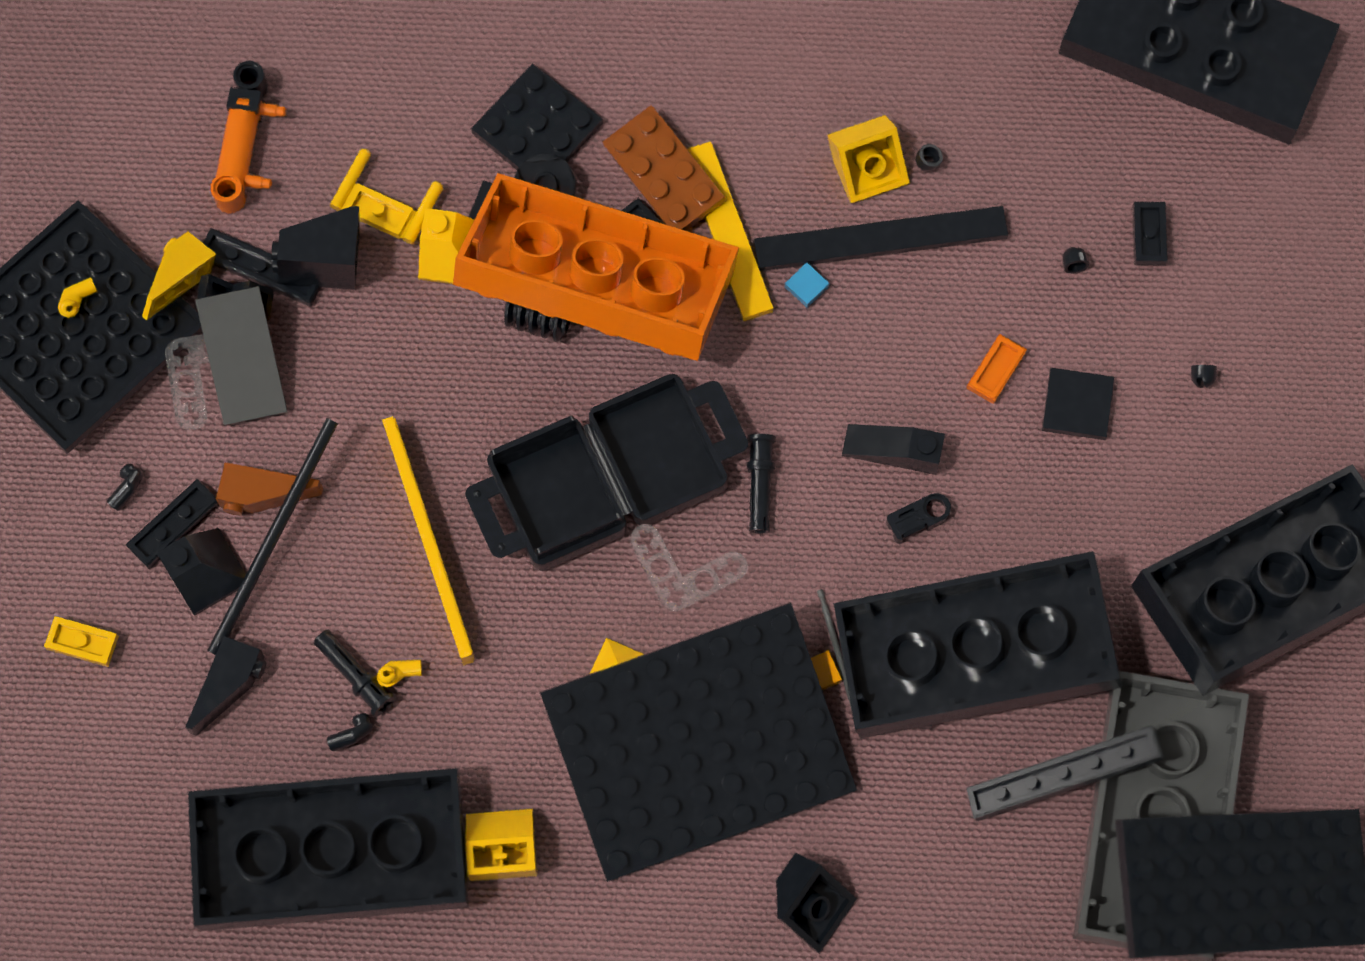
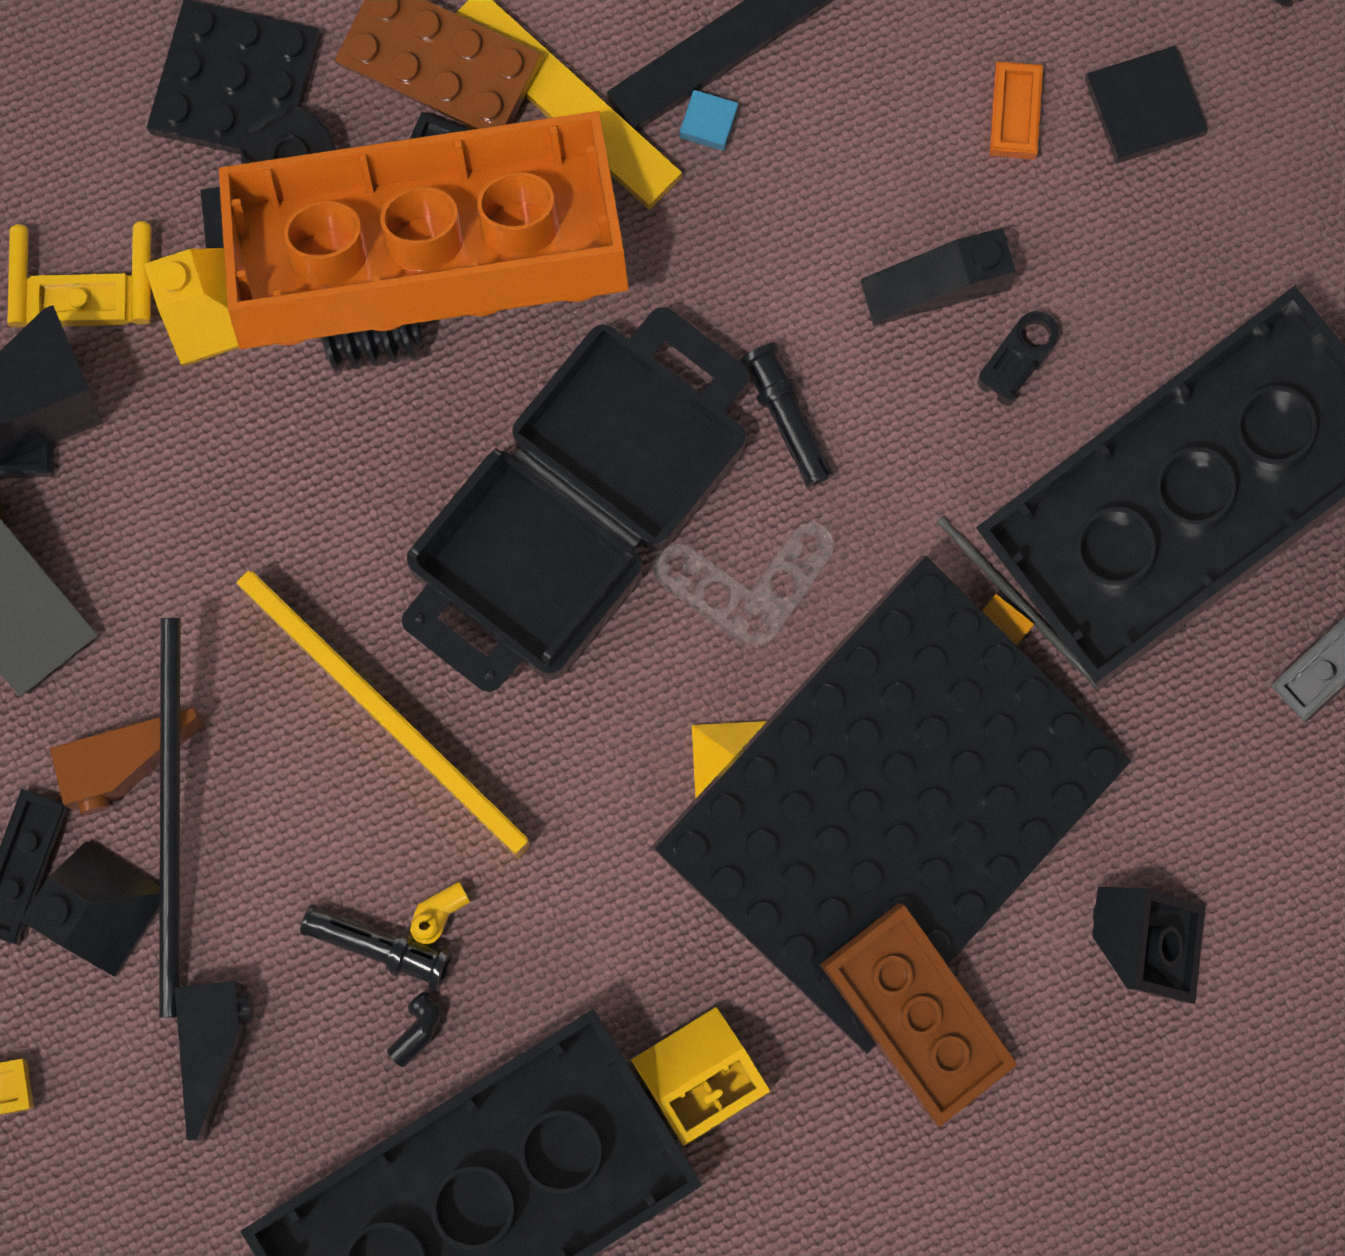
camera: 25 degrees left, 5 degrees up
(647, 872) = (918, 1014): none -> dark orange plate

